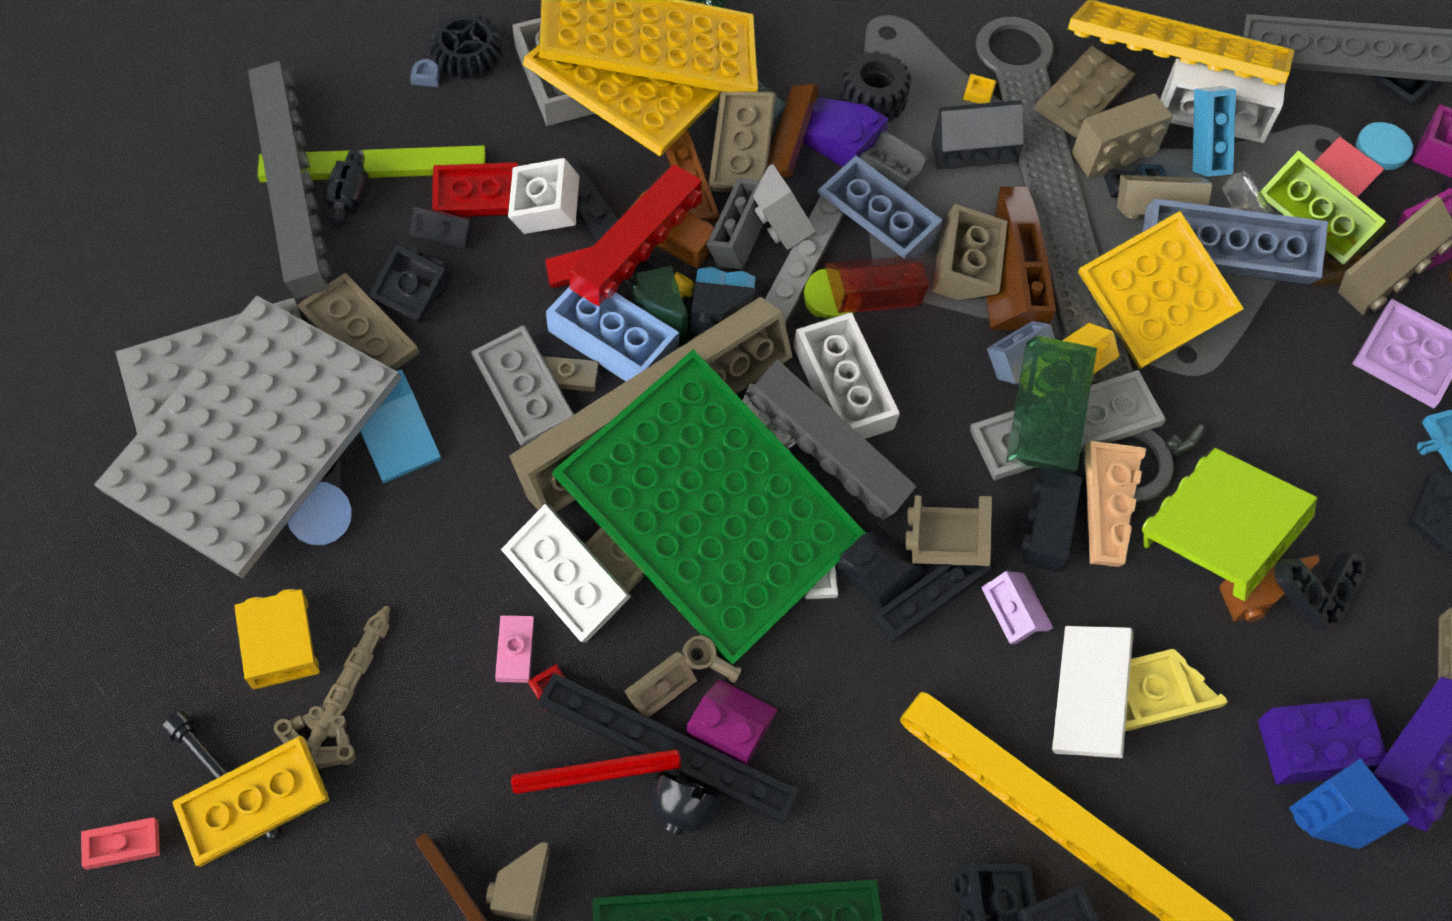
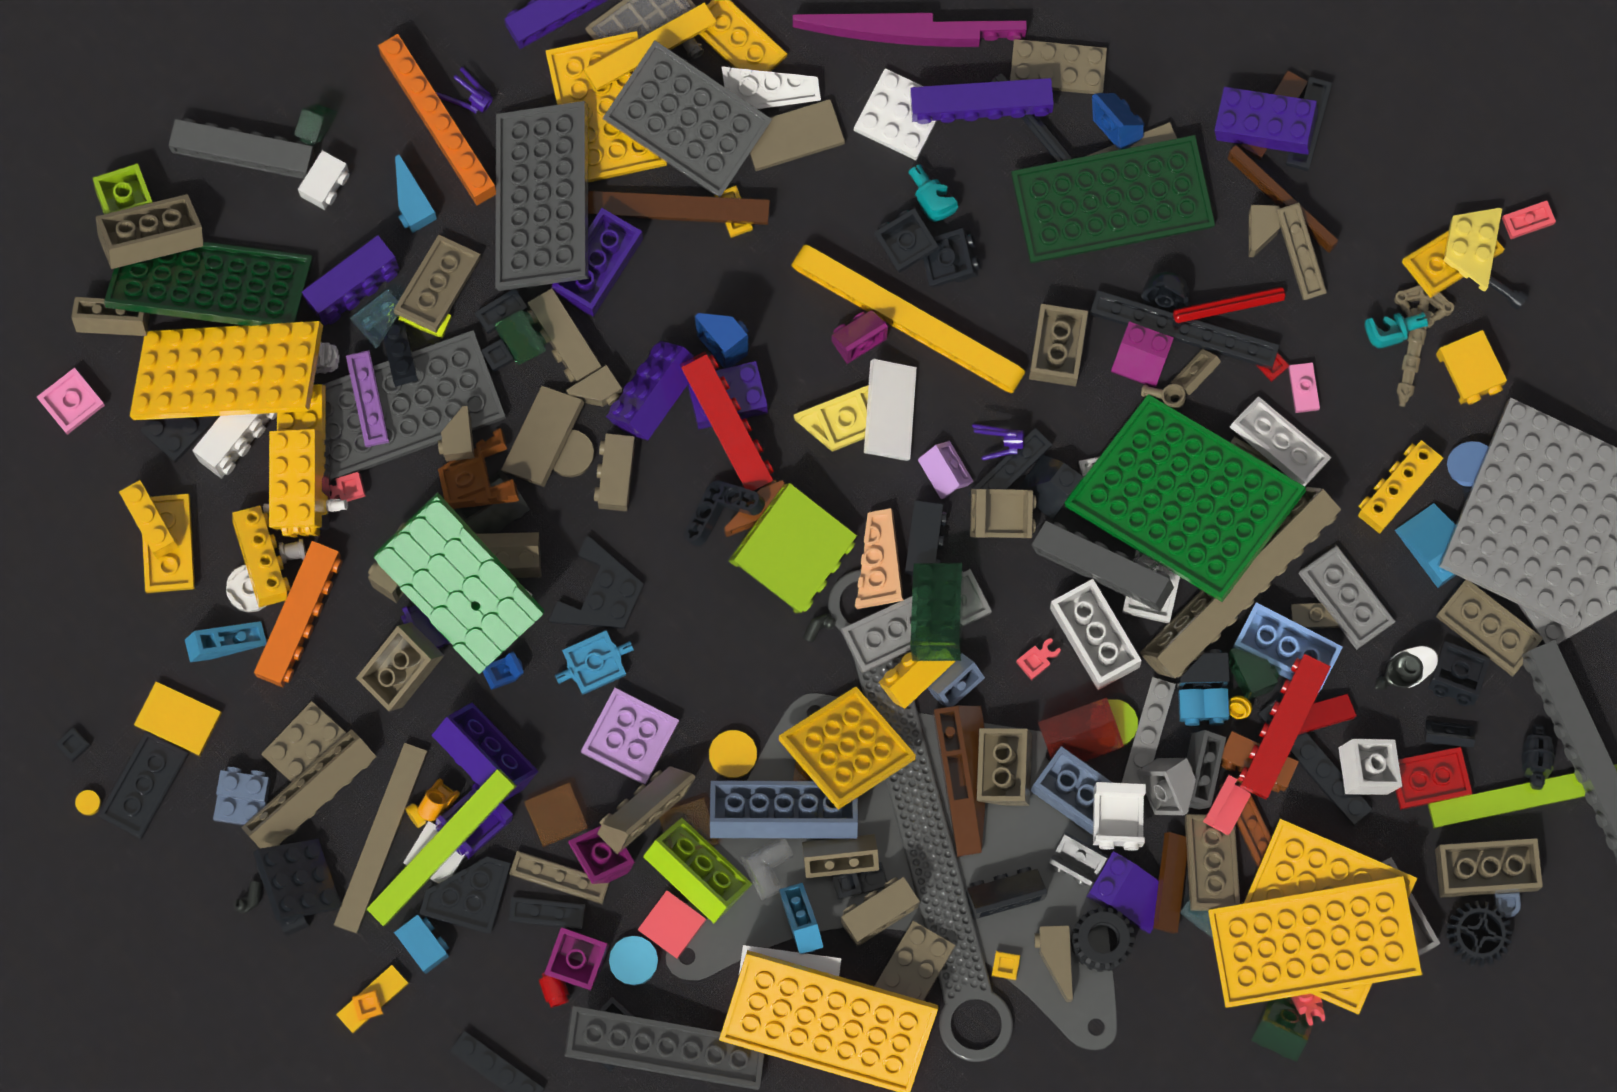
camera: 175 degrees right, 15 degrees up
(215, 808) = (1472, 244): none -> light yellow wing
(367, 700) = (1397, 329): none -> teal piece
(420, 500) = (1400, 486): none -> yellow brick
(437, 93) = (1488, 867): none -> dark tan brick
(473, 838) = (1301, 251): none -> dark tan tile
(474, 291) = (1408, 668): none -> pearl dark grey hair
(719, 184) = (1227, 806): none -> coral panel
(848, 169) = (1118, 815): none -> white panel
(852, 745) = (1058, 345): none -> dark tan brick
(917, 366) = (1035, 660): none -> coral plate
(927, 84) = (1056, 954): none -> dark tan slope
(929, 620) = (1012, 438): none -> dark purple plant
(1138, 798) = (860, 335): none -> magenta slope
(1286, 321) = (733, 754): none -> yellow tile
(1338, 688) = (726, 421): none -> red brick

